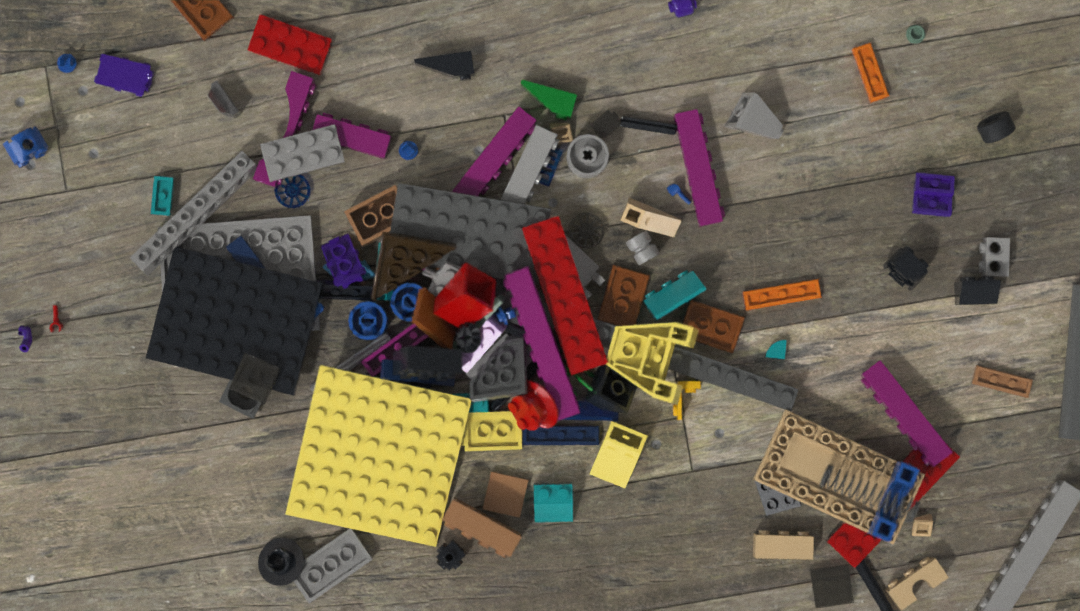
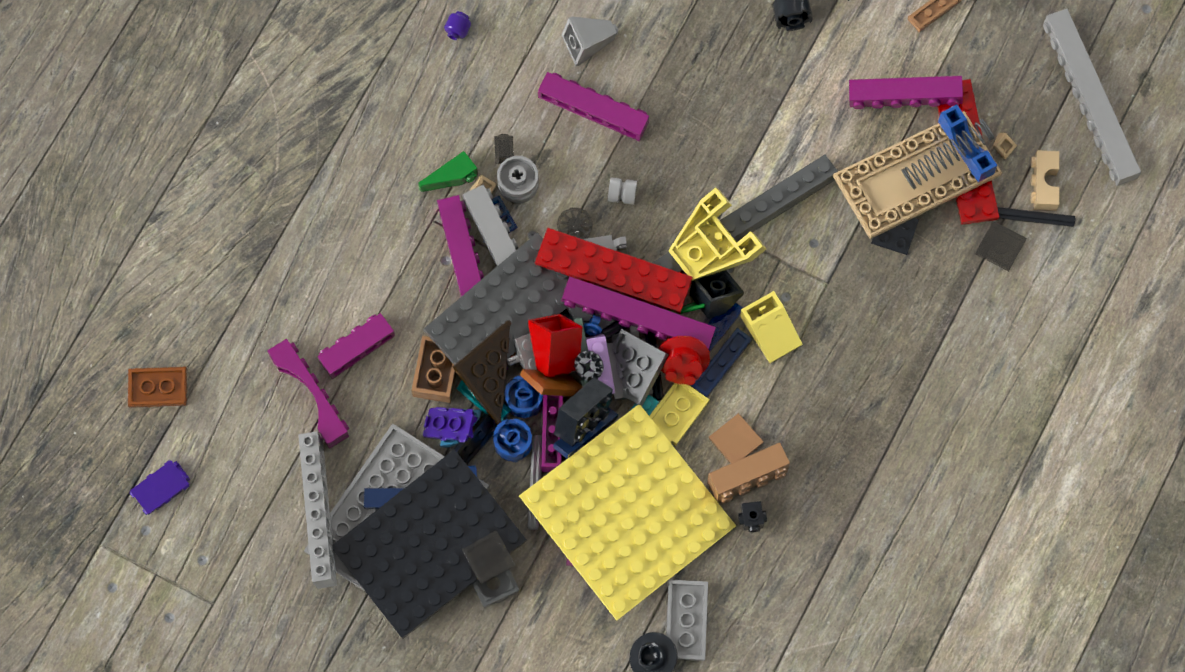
camera: 50 degrees left, 15 degrees down
(31, 138) = (154, 603): blue brick -> none
(66, 63) = (113, 525): blue plate -> none
(162, 196) = (281, 528): teal plate -> none
(222, 101) = (246, 423): flat silver slope -> none
(289, 45) = (244, 341): red plate -> none
(292, 191) = (361, 424): clear blue wheel -> none
(302, 153) = (339, 389): light grey plate -> none
(408, 150) = (402, 312): blue plate -> none
(452, 65) = (362, 230): black slope -> none
(553, 502) = (771, 406): teal slope -> none
(623, 296) = (647, 233): dark orange tile -> none
(648, 125) = (530, 119): black axle -> none
(649, 218) = (603, 169): tan slope -> none
(673, 294) = (677, 194): teal slope -> none
(675, 189) = (596, 135): blue hand -> none
(690, 387) = (769, 257): yellow bracket -> none
(715, 326) = (730, 179): dark orange tile -> none
(777, 350) = (782, 152): teal tile -> none
(781, 294) = (741, 118): orange tile -> none
(783, 545) = (940, 257): tan brick -> none

